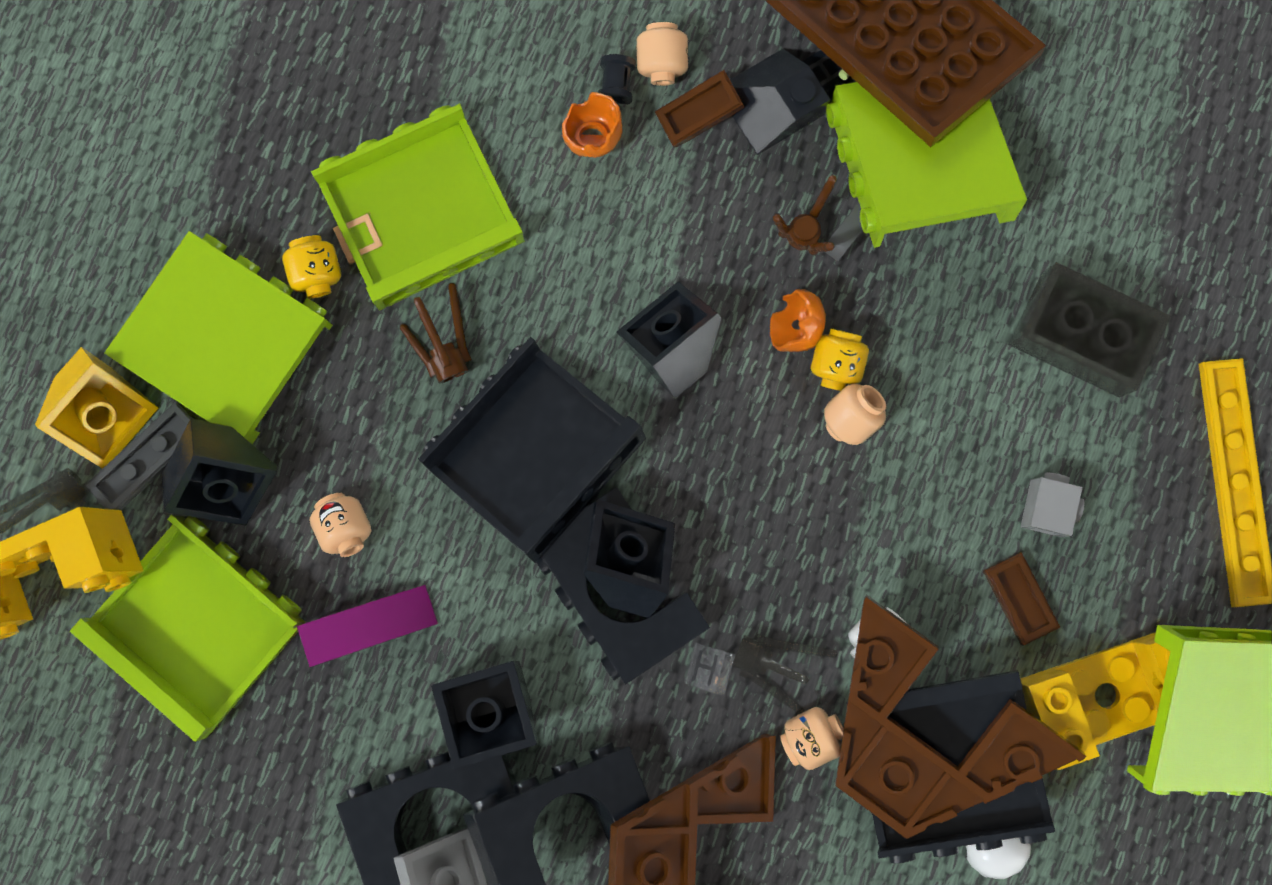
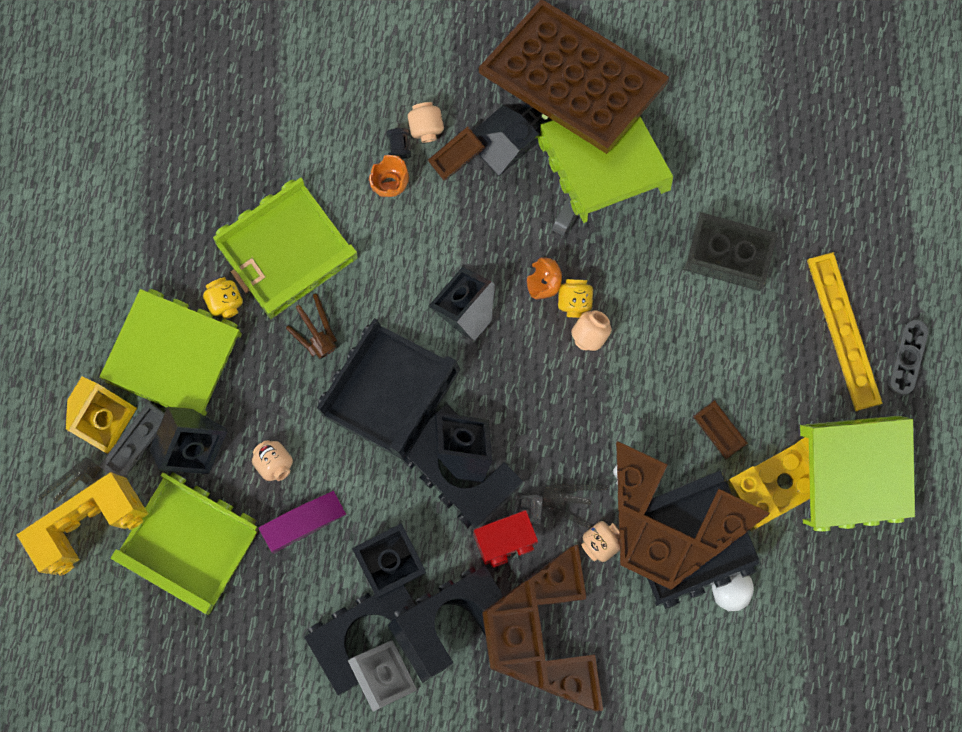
camera: 15 degrees left, 5 degrees down
(667, 713) = (505, 537): none -> red brick
(805, 228) = (538, 219): reddish brown plant -> none
(1052, 505) = (728, 366): light grey brick -> none

